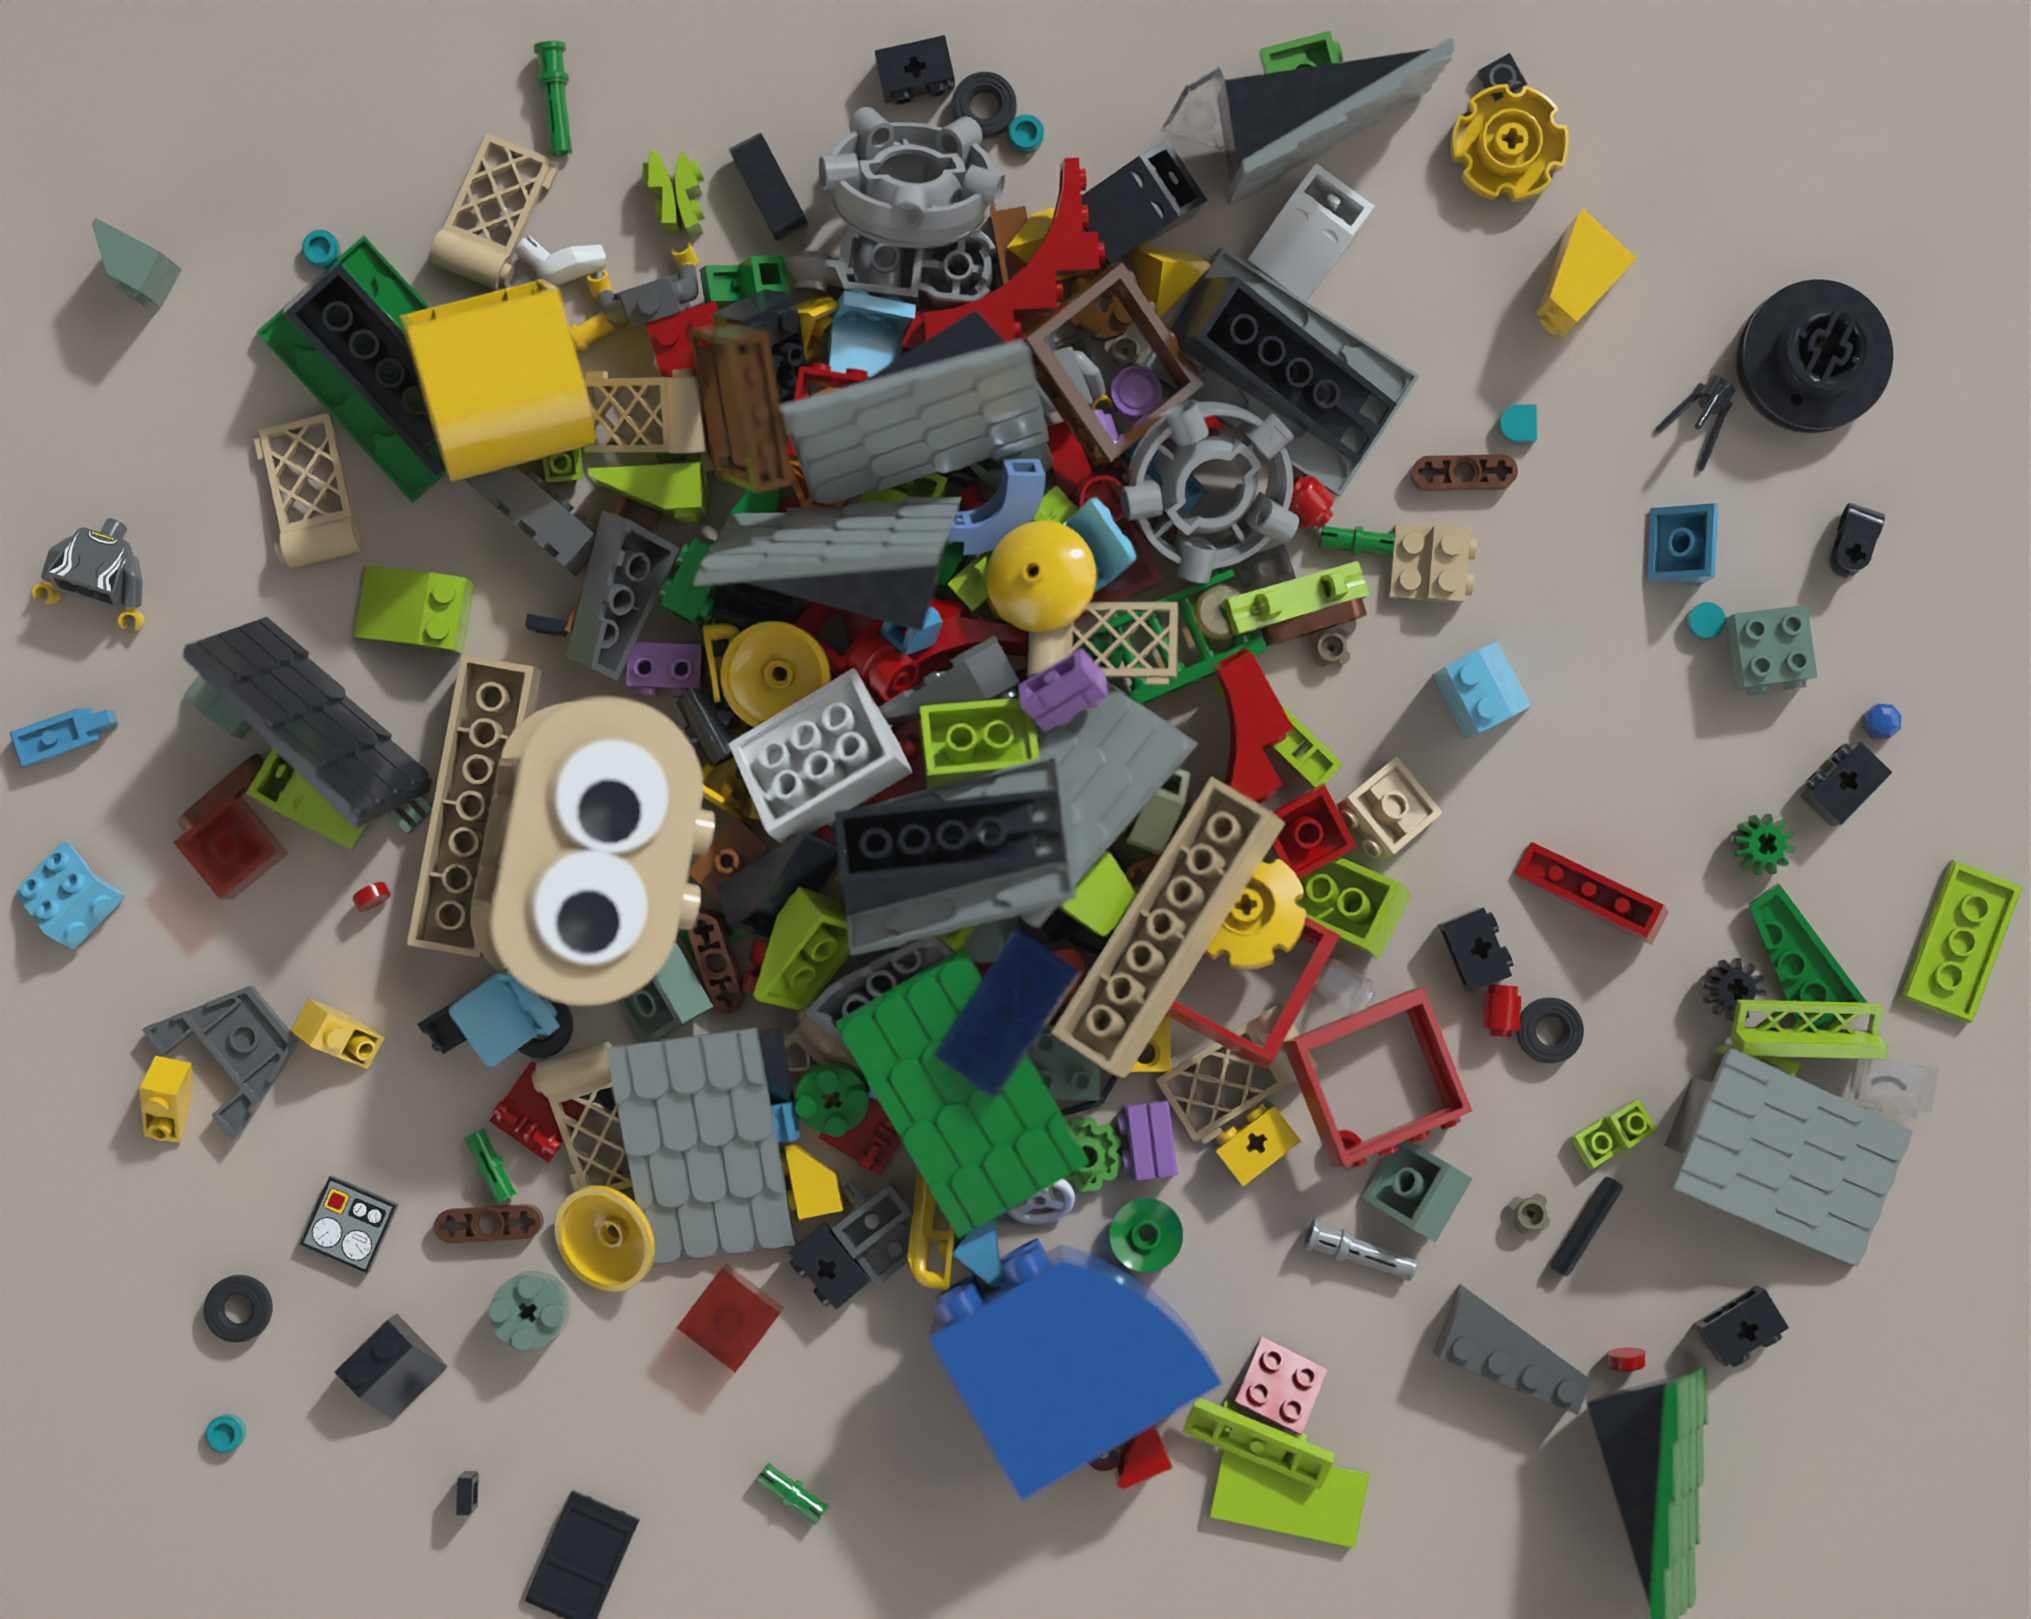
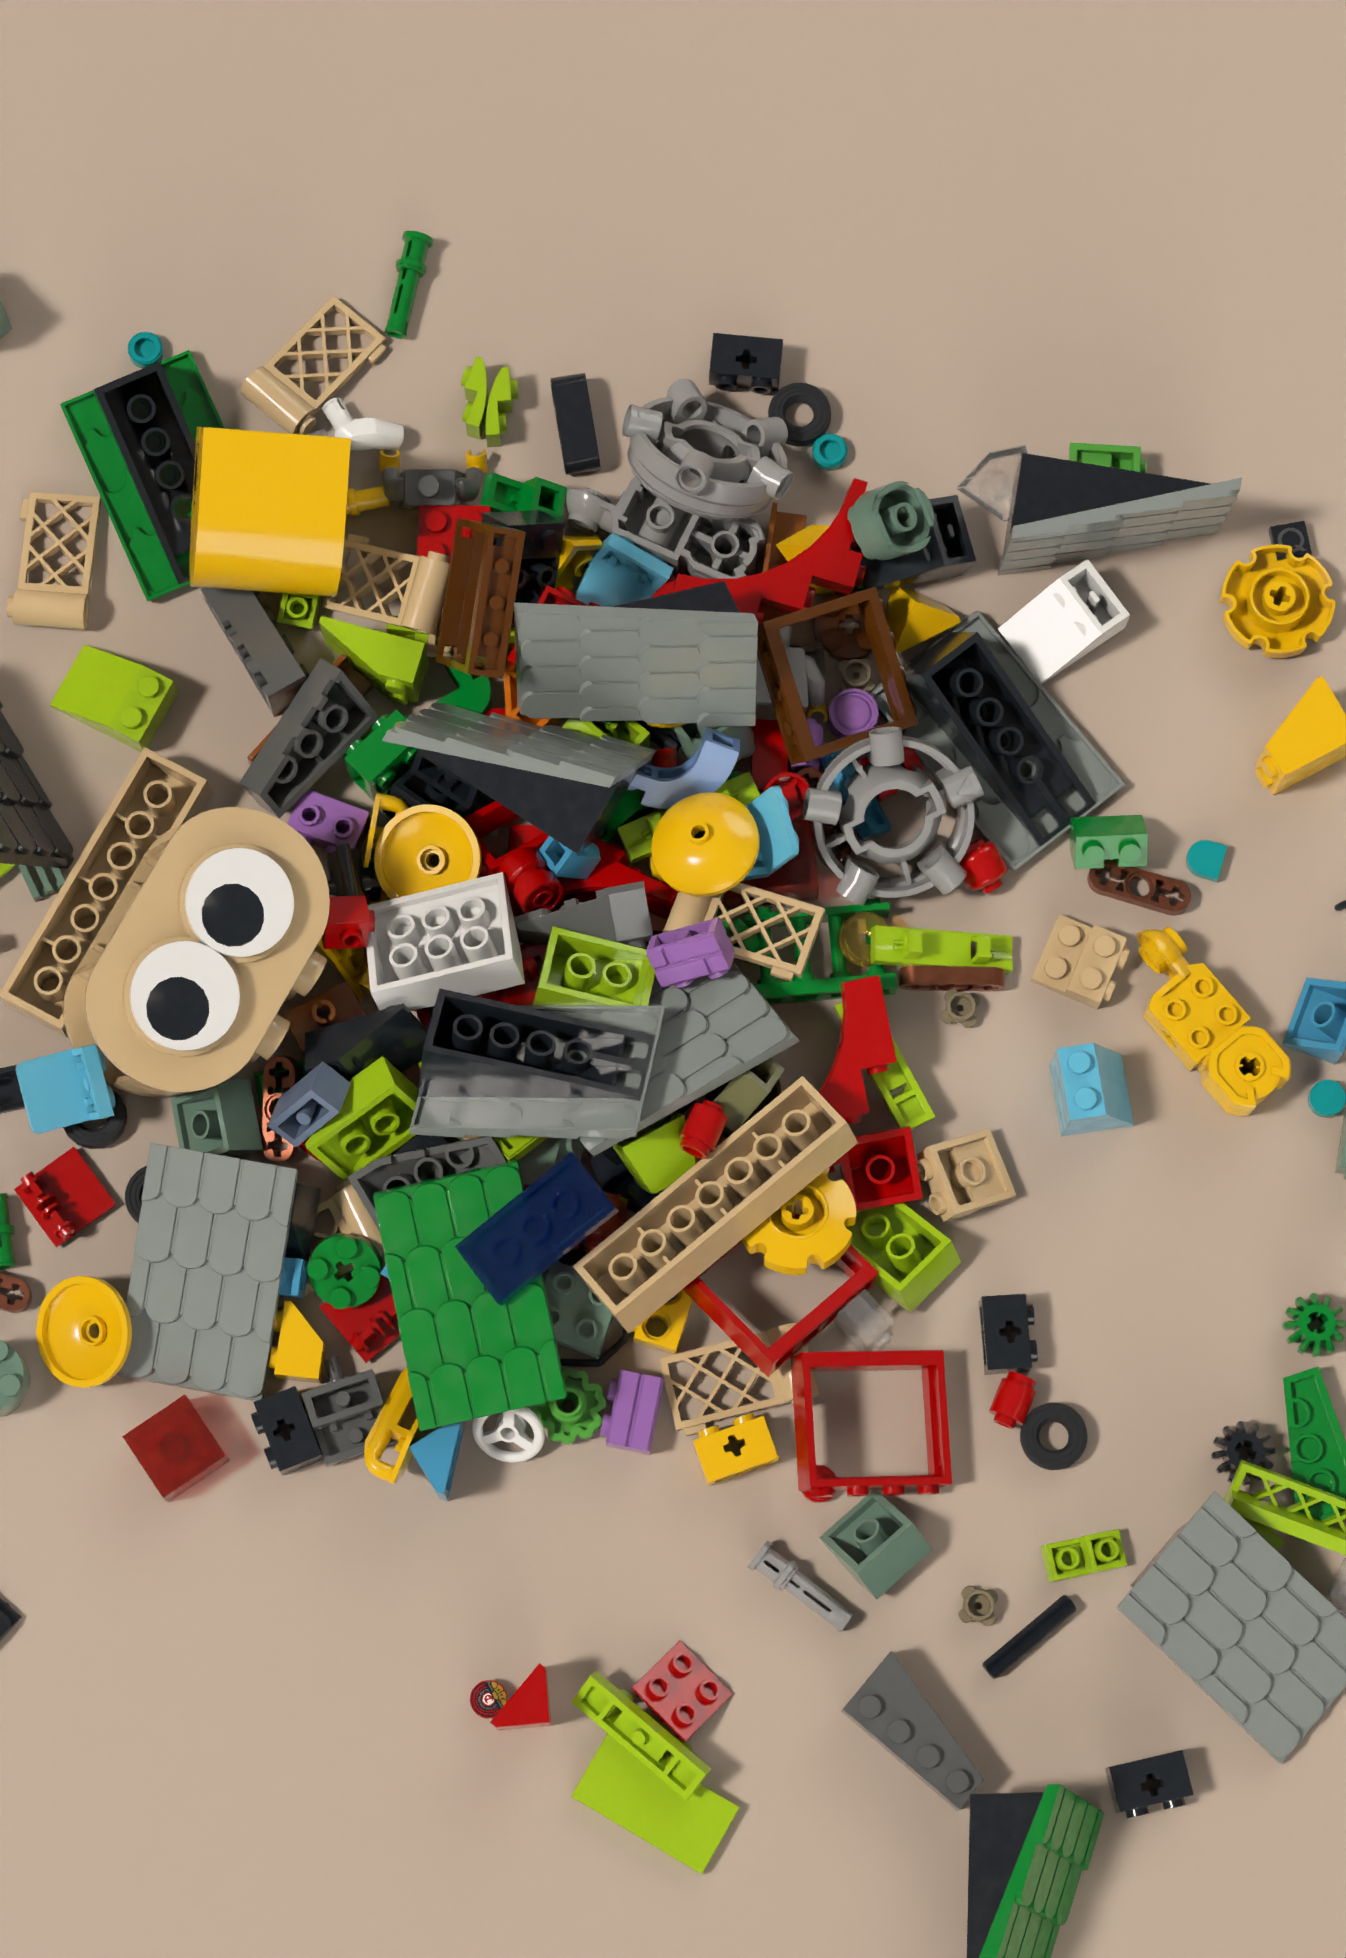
camera: 15 degrees right, 10 degrees down
(546, 625) = (231, 750): black tile -> none
(571, 1078) = (106, 1171): tan piece -> none
(722, 769) = (348, 923): none -> red brick
(744, 956) = (309, 1104): none -> sand blue brick
(791, 1493) = (175, 1639): green pin -> none
(1065, 1360) = (480, 1579): blue slope -> none
(1116, 190) = (891, 521): none -> sand green brick
(1133, 861) = (703, 1129): none -> red brick
(1146, 1254) = (594, 1482): green dish -> none
(1278, 560) = (933, 905): clear smoke brick -> none
(1357, 540) = (1017, 917): green pin -> none
(1421, 436) = (1108, 839): none -> green brick
(1576, 590) = (1209, 1028): none -> yellow brick
(1593, 893) = (1137, 1319): red slope -> none
(1626, 1359) = (1026, 1777): red tile -> none

